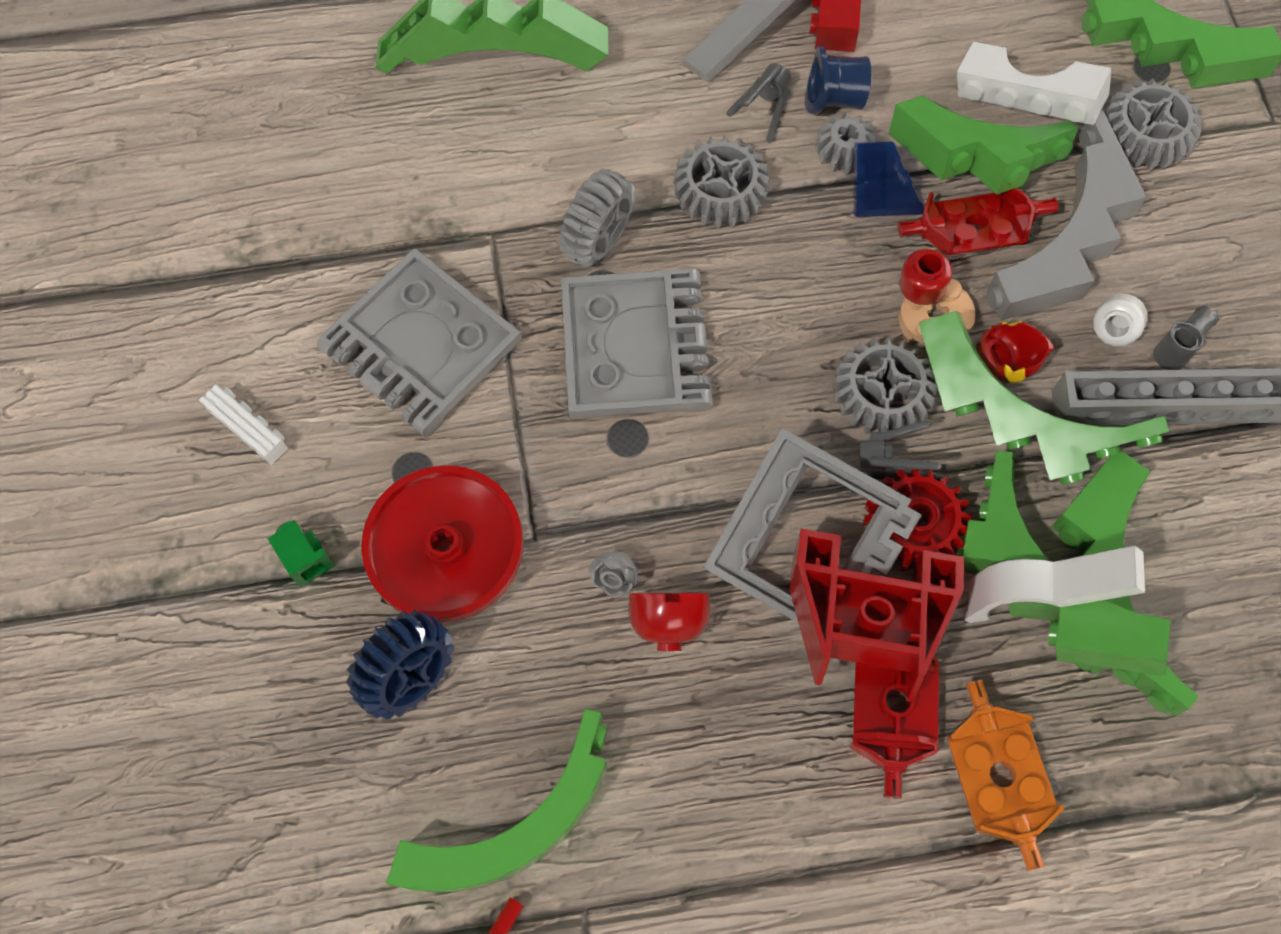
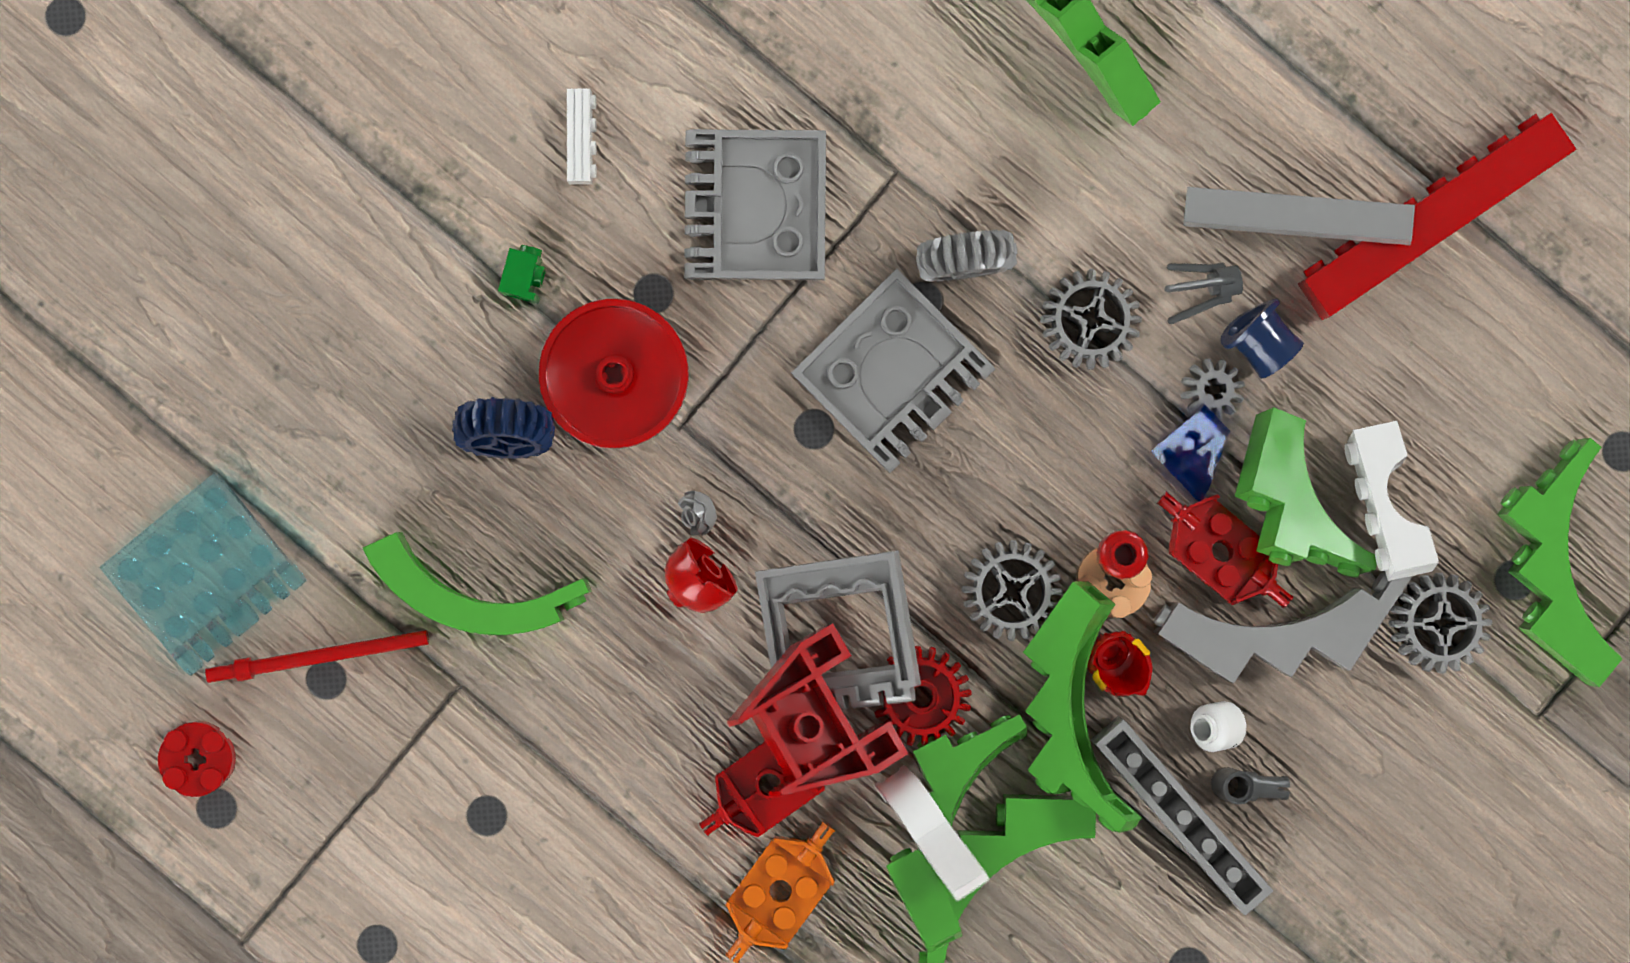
camera: 50 degrees right, 20 degrees up
(878, 456) = (946, 631): dark grey plant -> none

